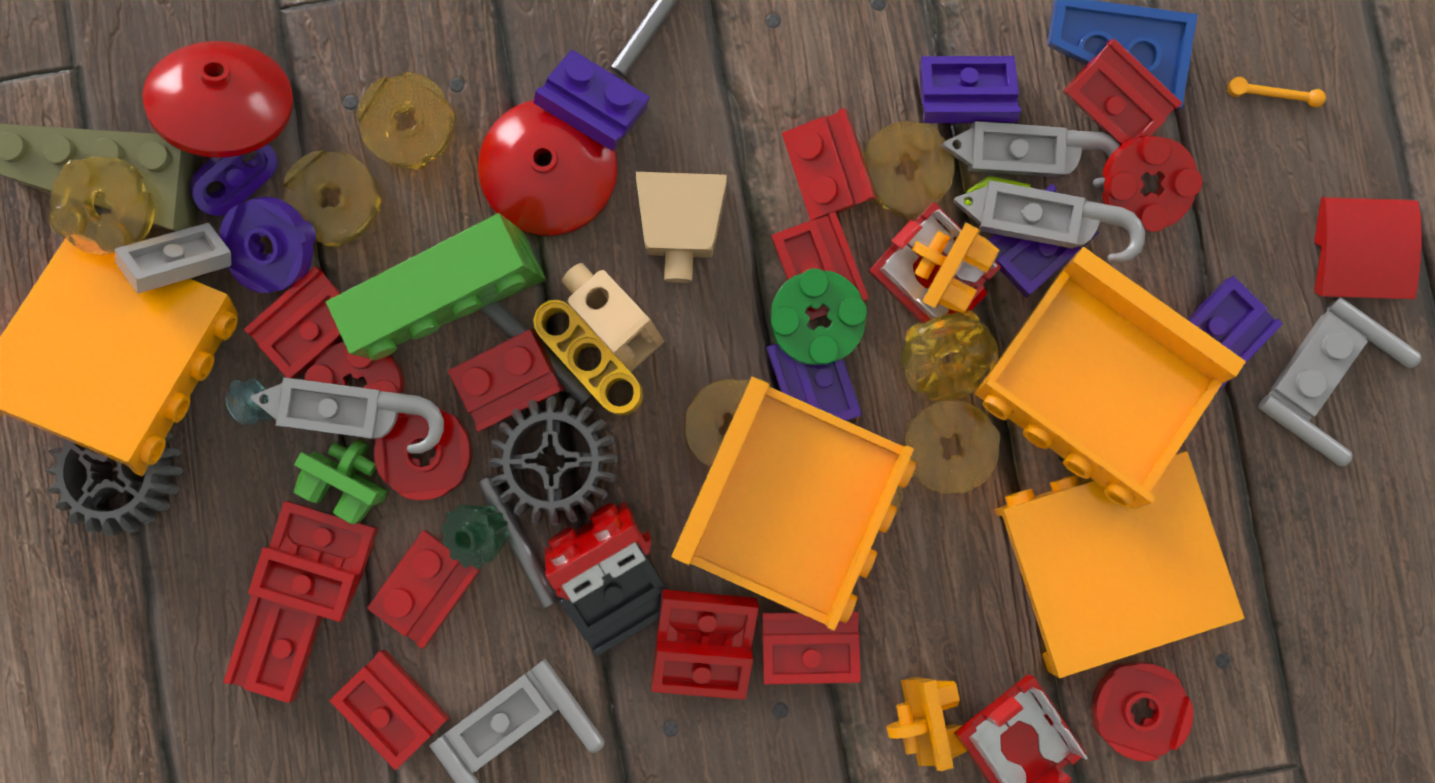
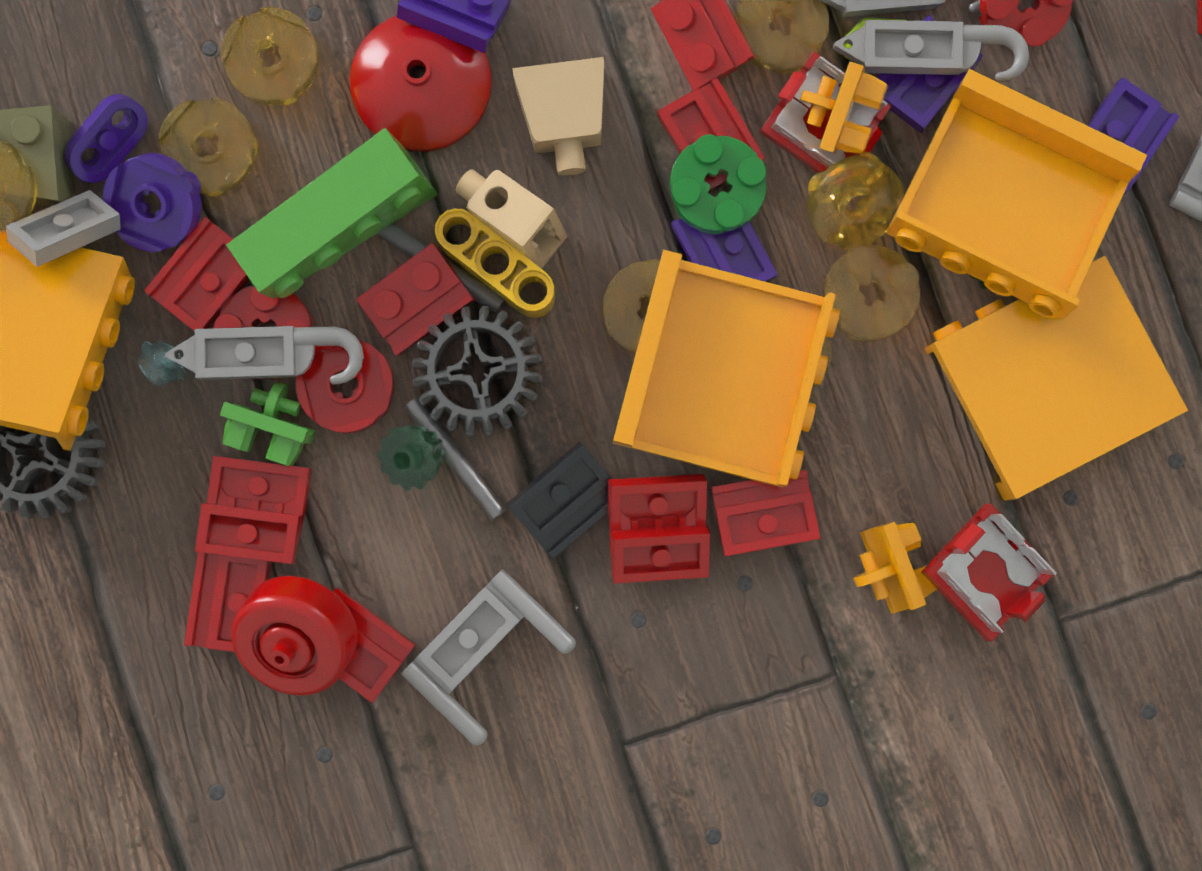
camera: 15 degrees left, 0 degrees up
(218, 99) = (78, 64): red dish -> none
(327, 696) = (294, 635): none -> red wheel
(422, 590) = (368, 521): red plate -> none
(603, 541) = (519, 458): red piece -> none
(1153, 736) = (1118, 544): red plate -> none

